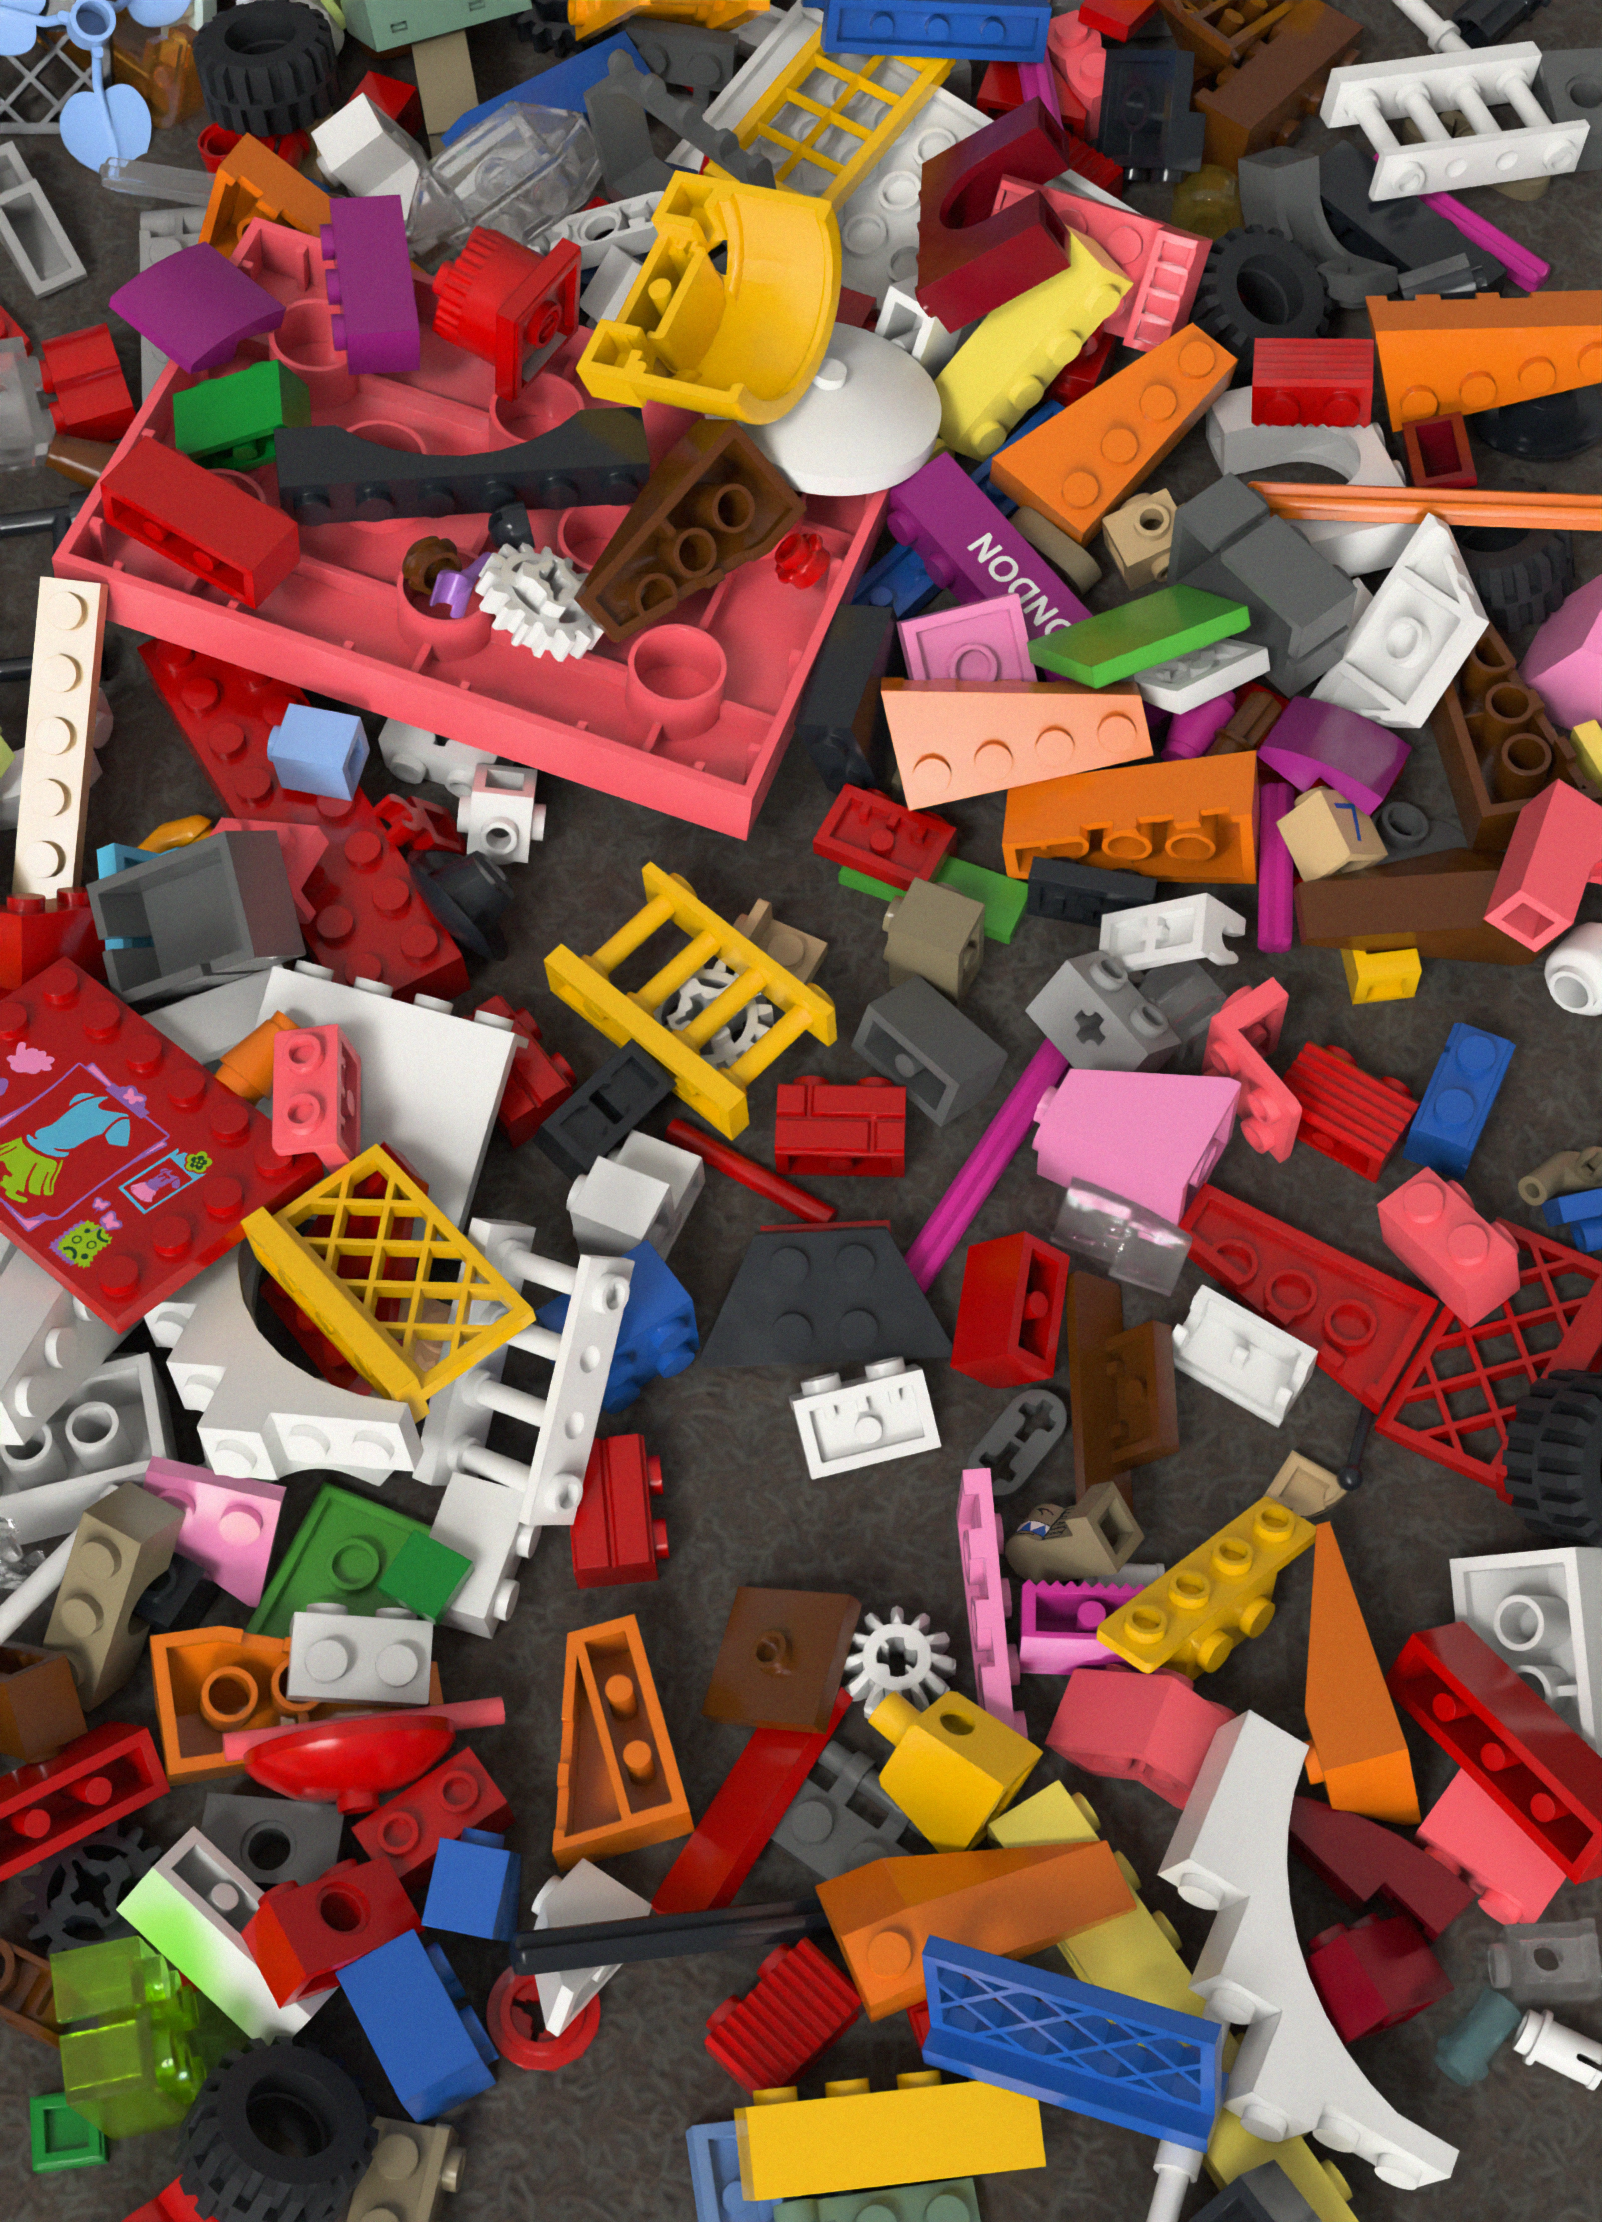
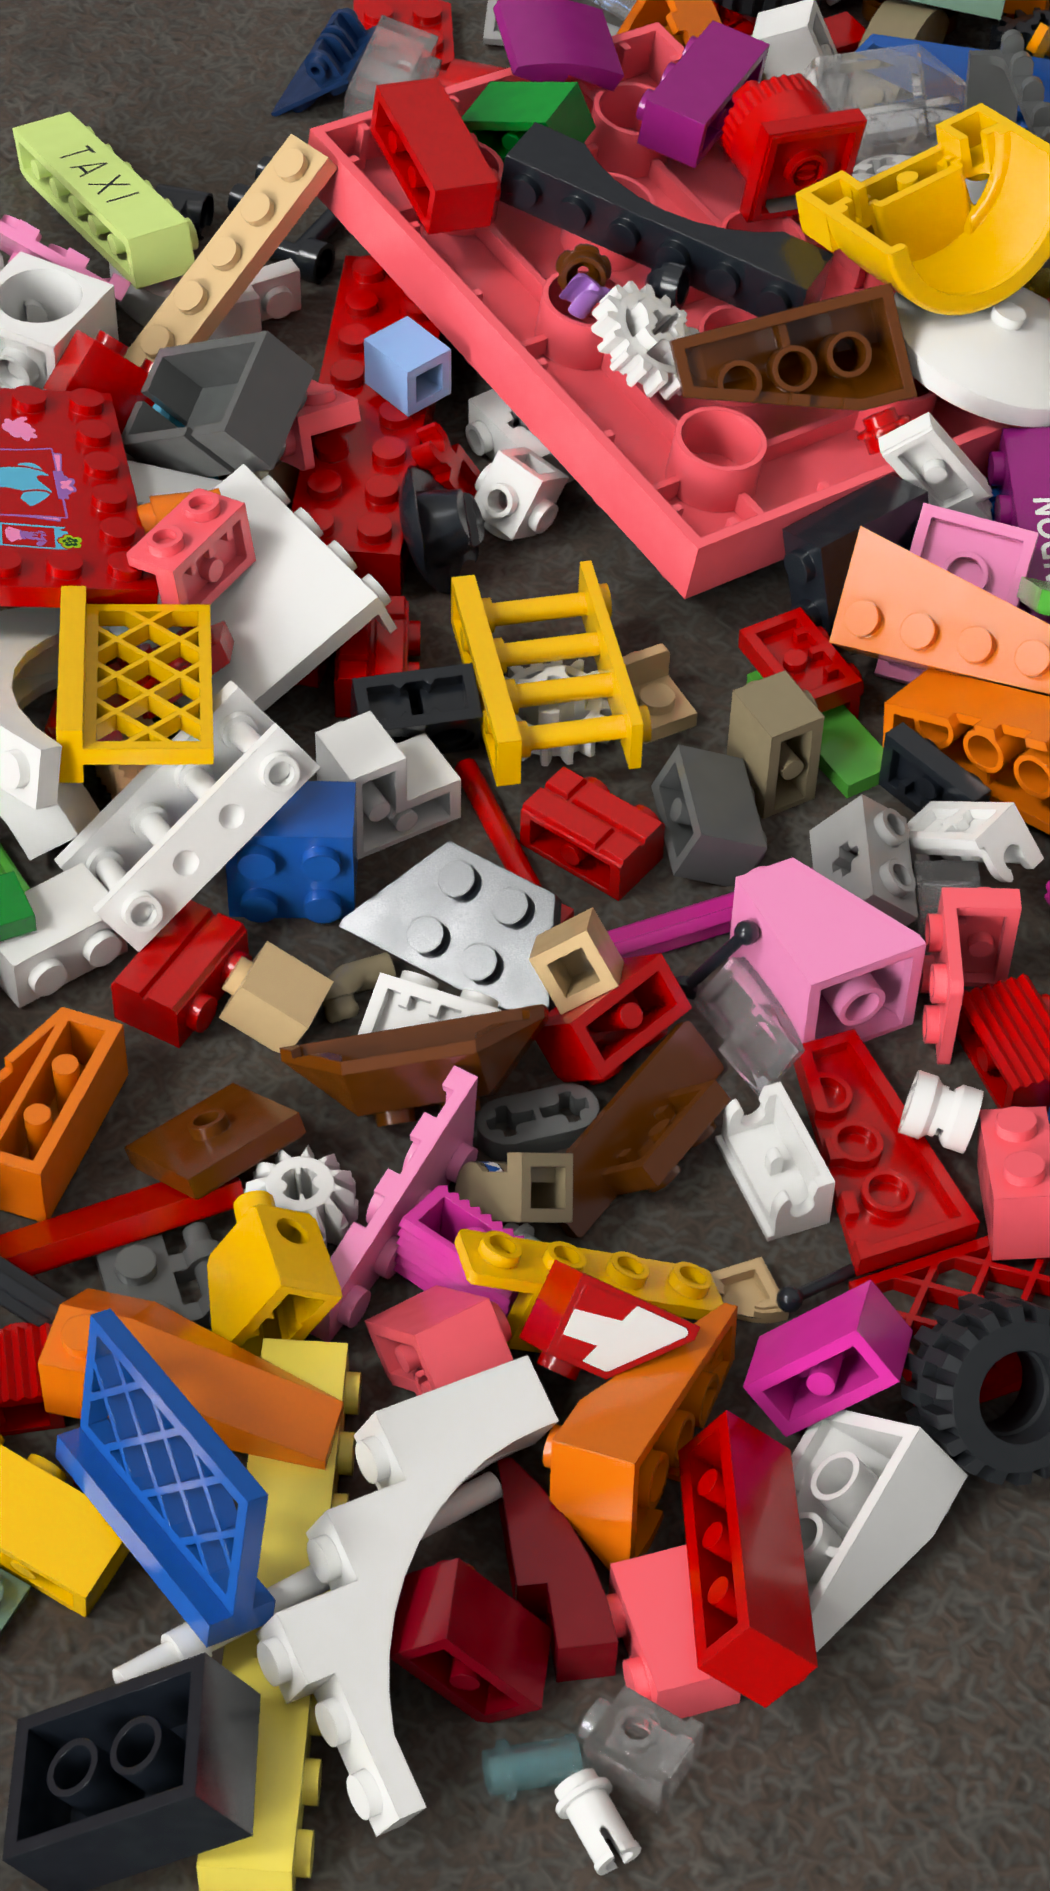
camera: 30 degrees right, 15 degrees down
(718, 1485) = (273, 997): none -> tan brick
(752, 1419) = (351, 980): none -> dark tan arm
(878, 575) = (932, 461): none -> white hinge
(898, 1468) = (405, 1066): none -> reddish brown wedge
(958, 1284) = (576, 961): none -> tan brick
(1079, 1165) = (745, 933): none -> black hinge
(1264, 1629) = (598, 1326): none -> slope
(1342, 1225) = (939, 1111): none -> white wheel
(1441, 1523) = (828, 1358): none -> dark pink brick

